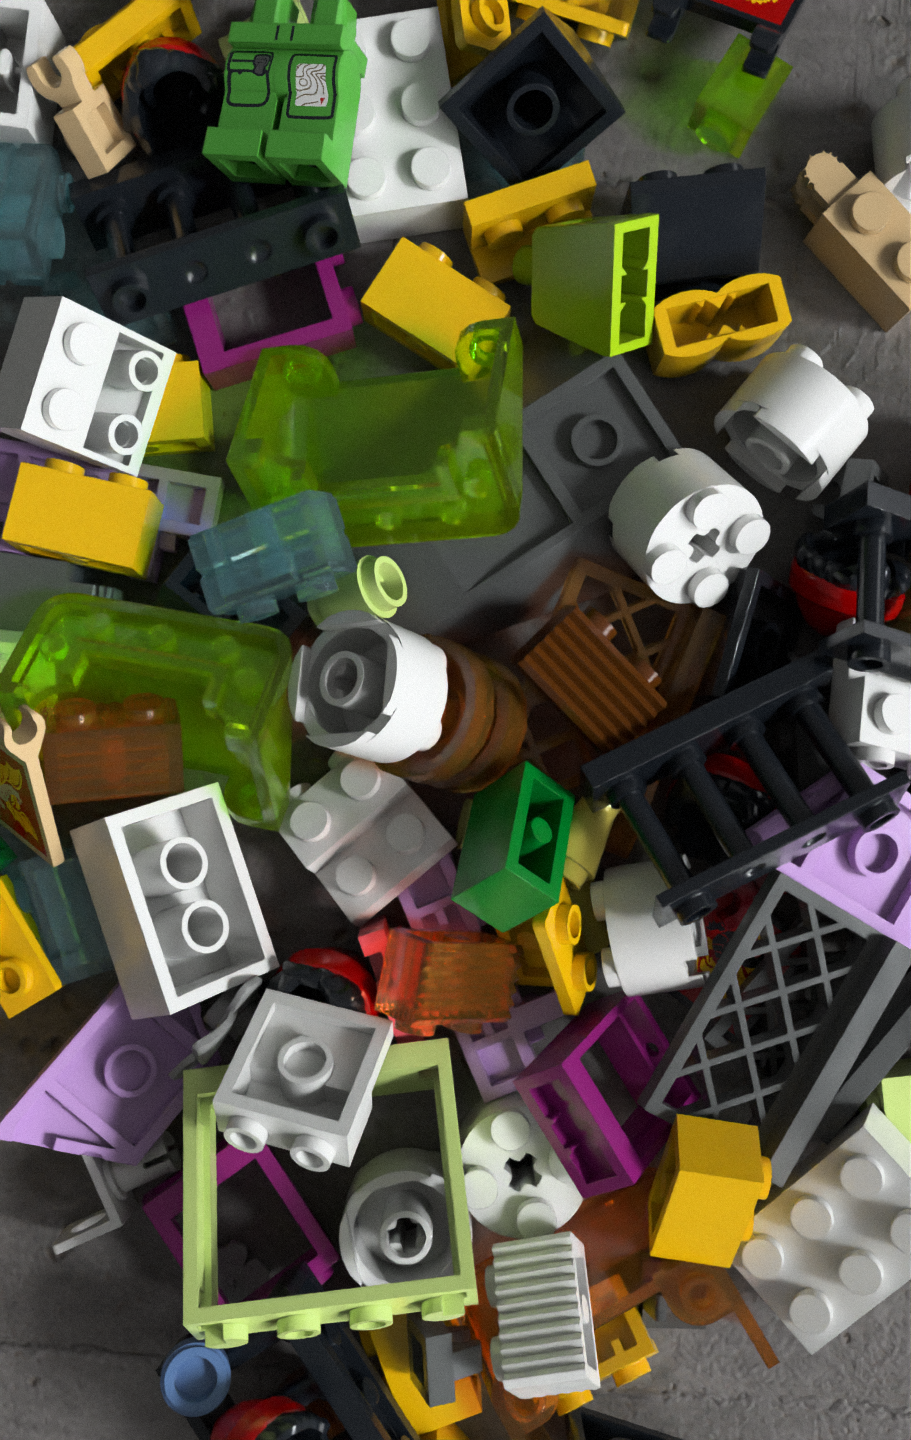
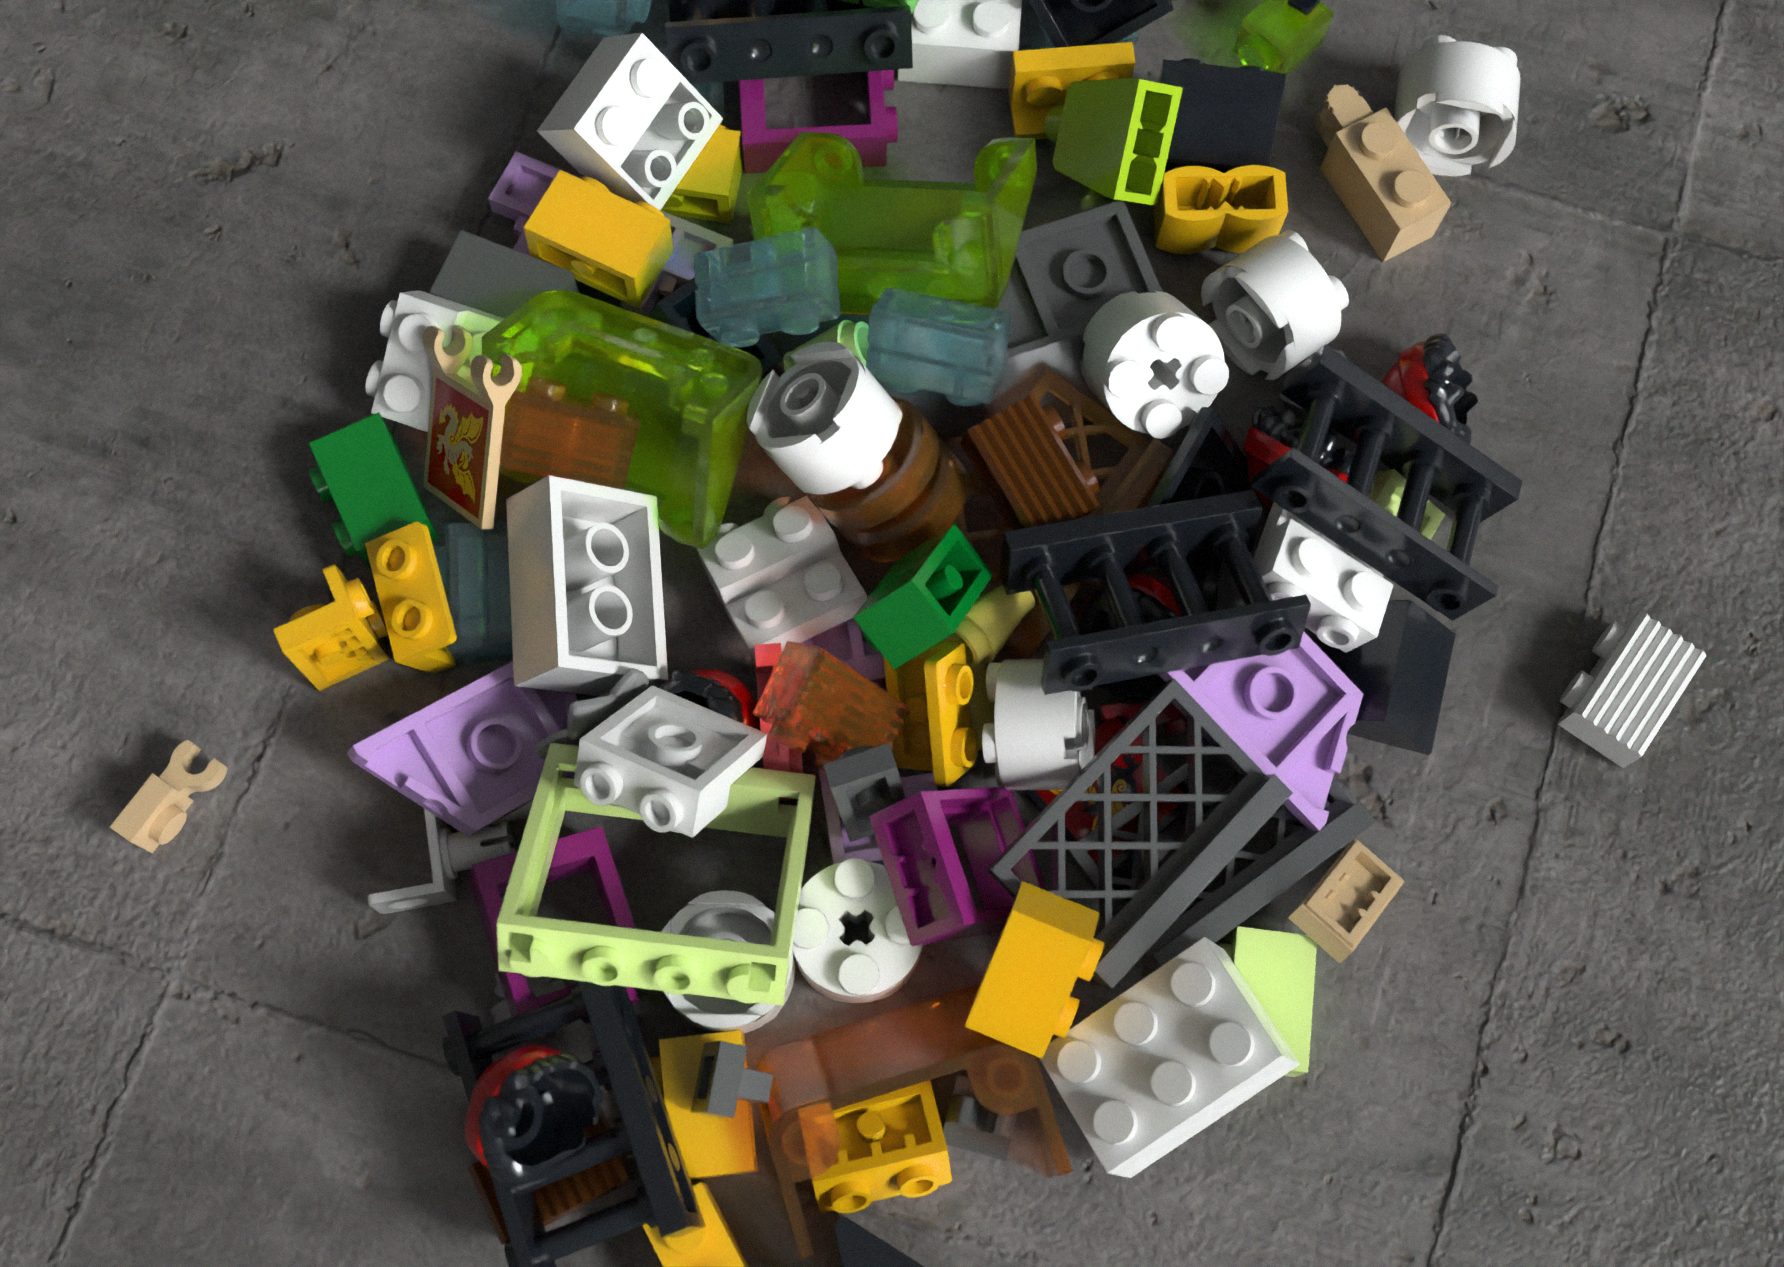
camera: 15 degrees right, 15 degrees down
(195, 1378) = (481, 1025): medium blue tile -> none
(428, 302) = (950, 129): yellow brick -> none
(464, 572) = (938, 346): none -> clear light blue brick
(501, 1048) = (863, 784): none -> dark grey plate
(542, 1317) = (842, 1057): white brick -> none

